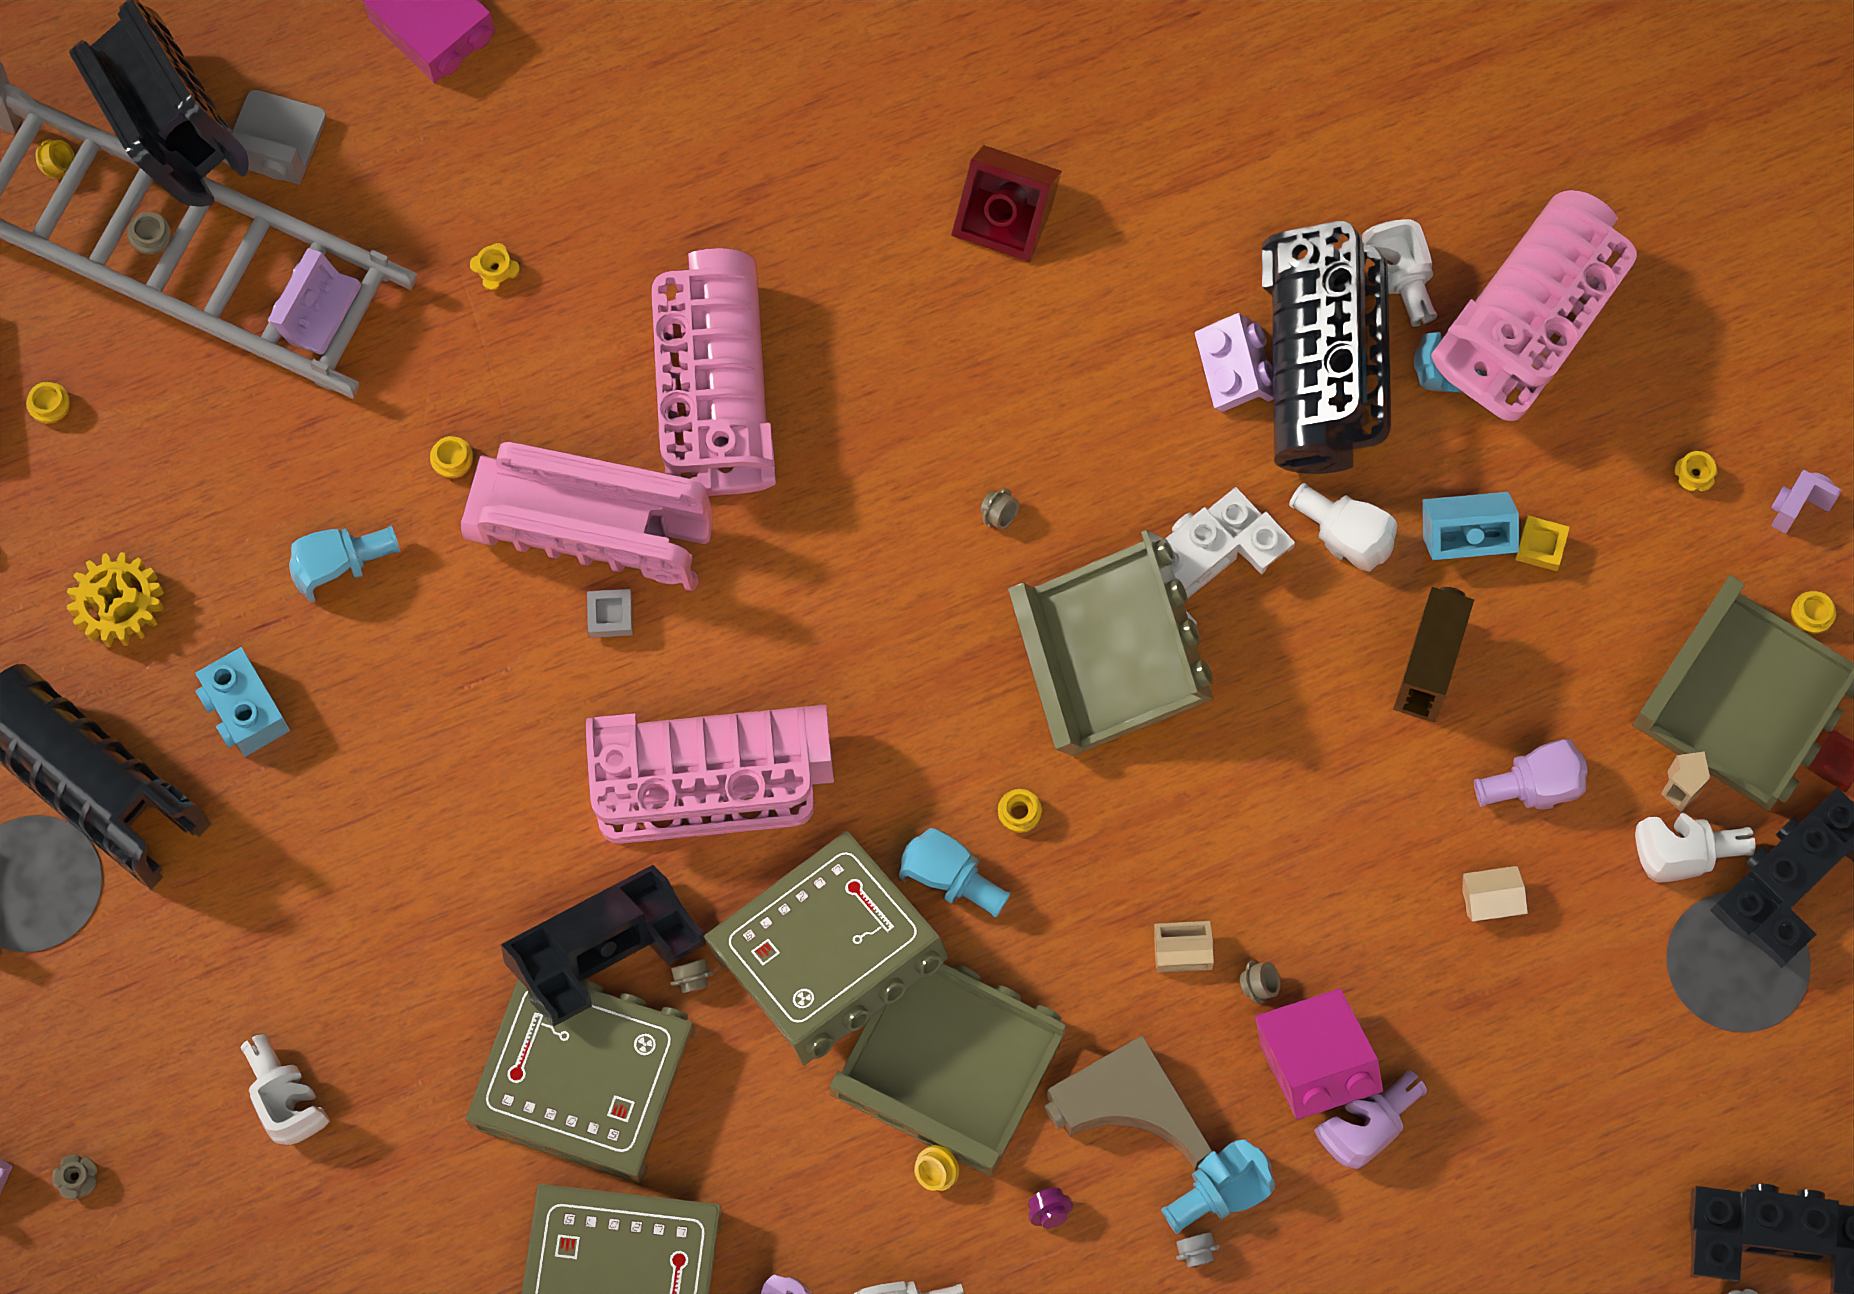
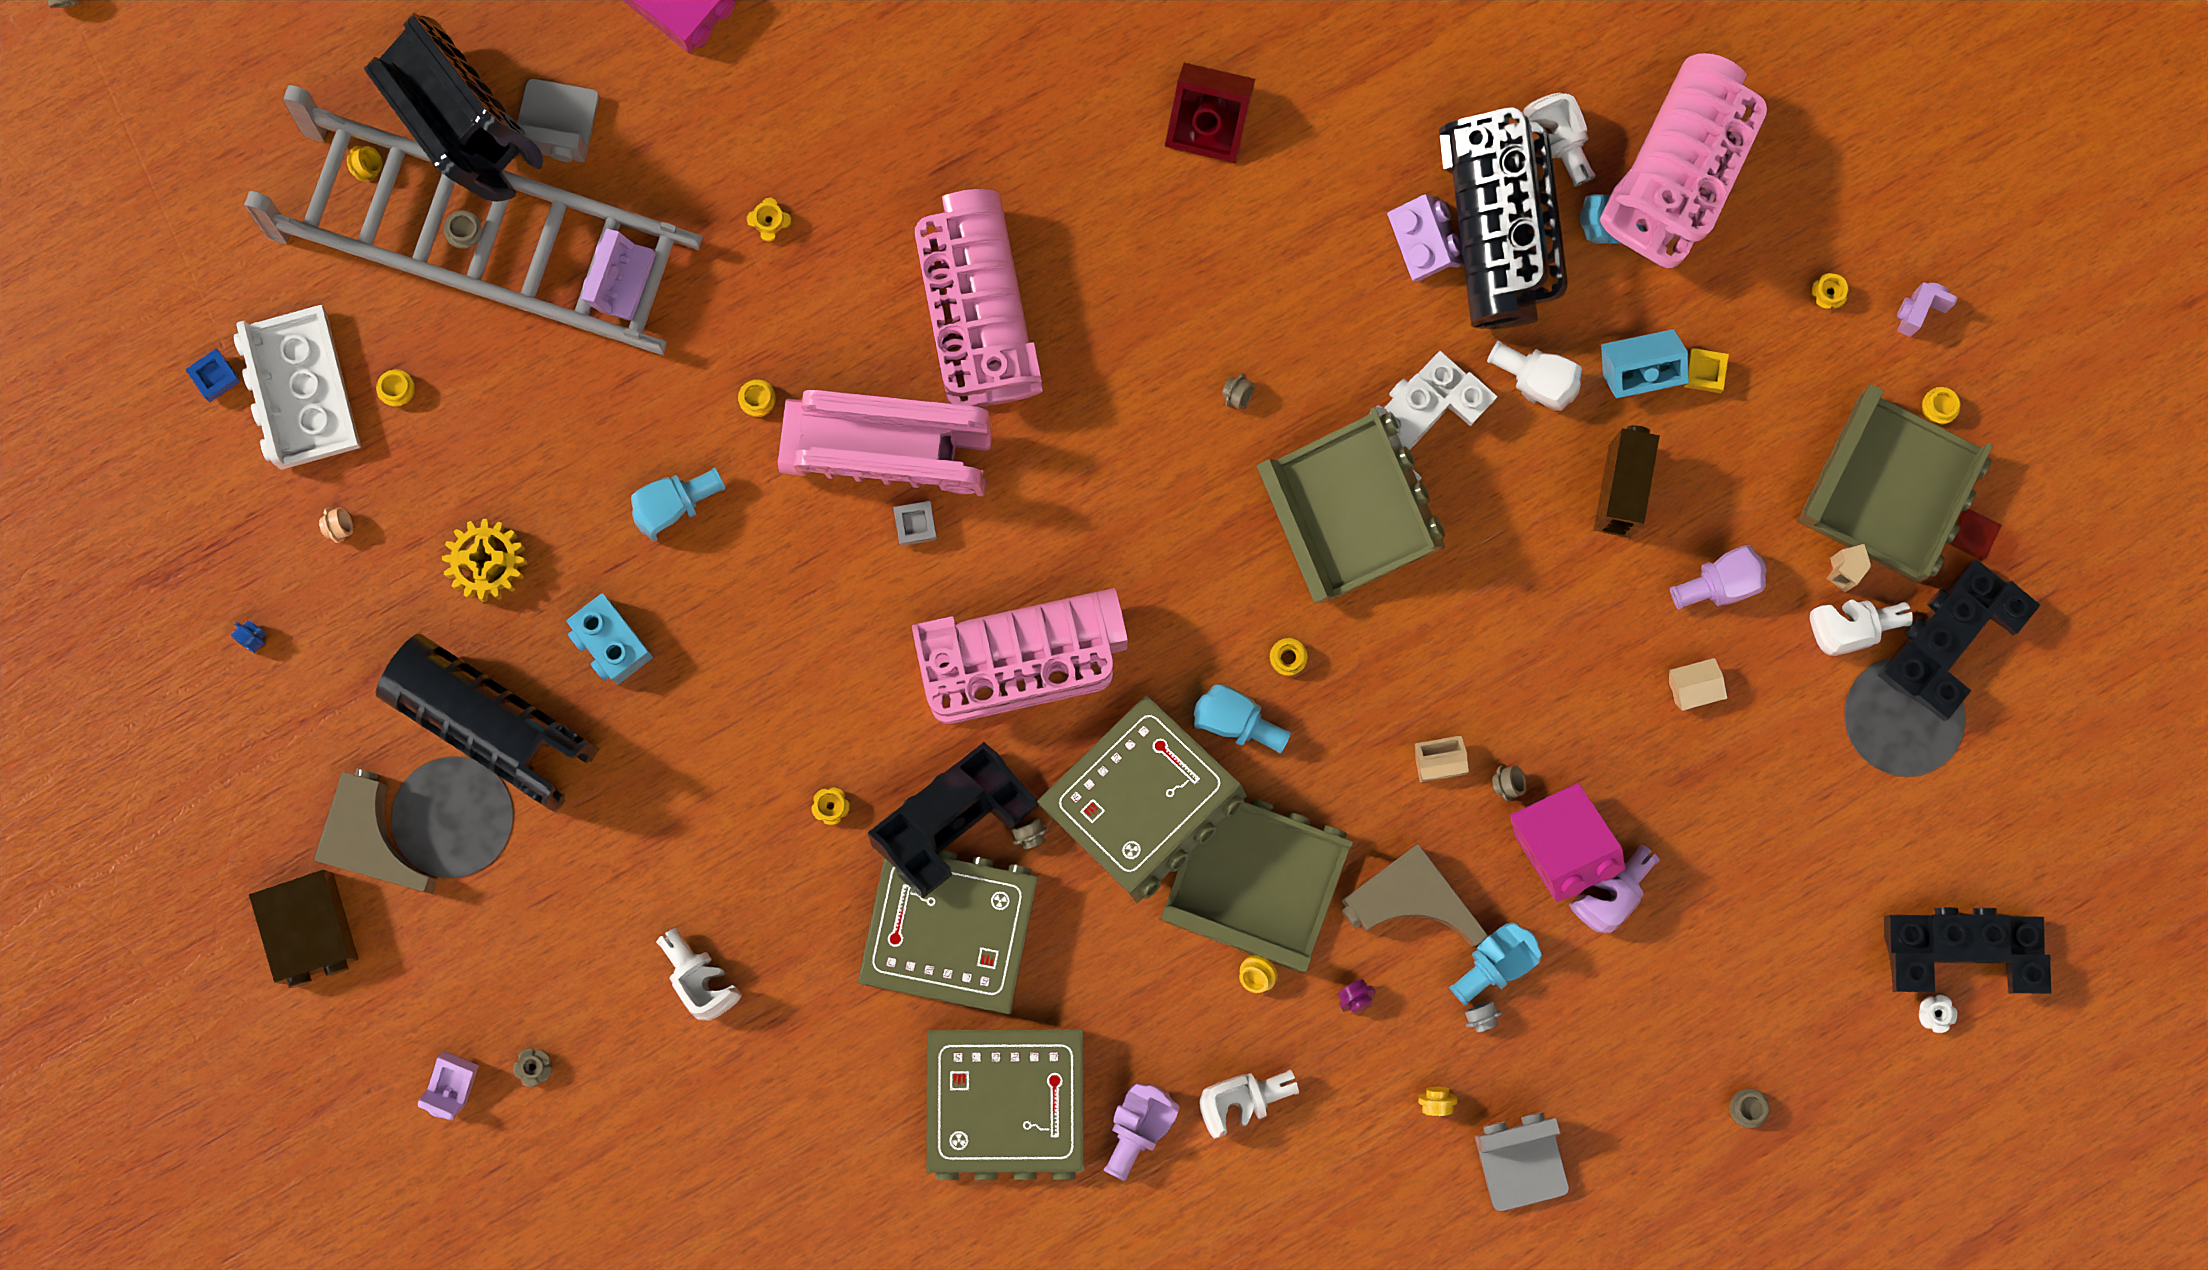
camera: 10 degrees left, 10 degrees up
(460, 908) = (820, 809): none -> yellow plate

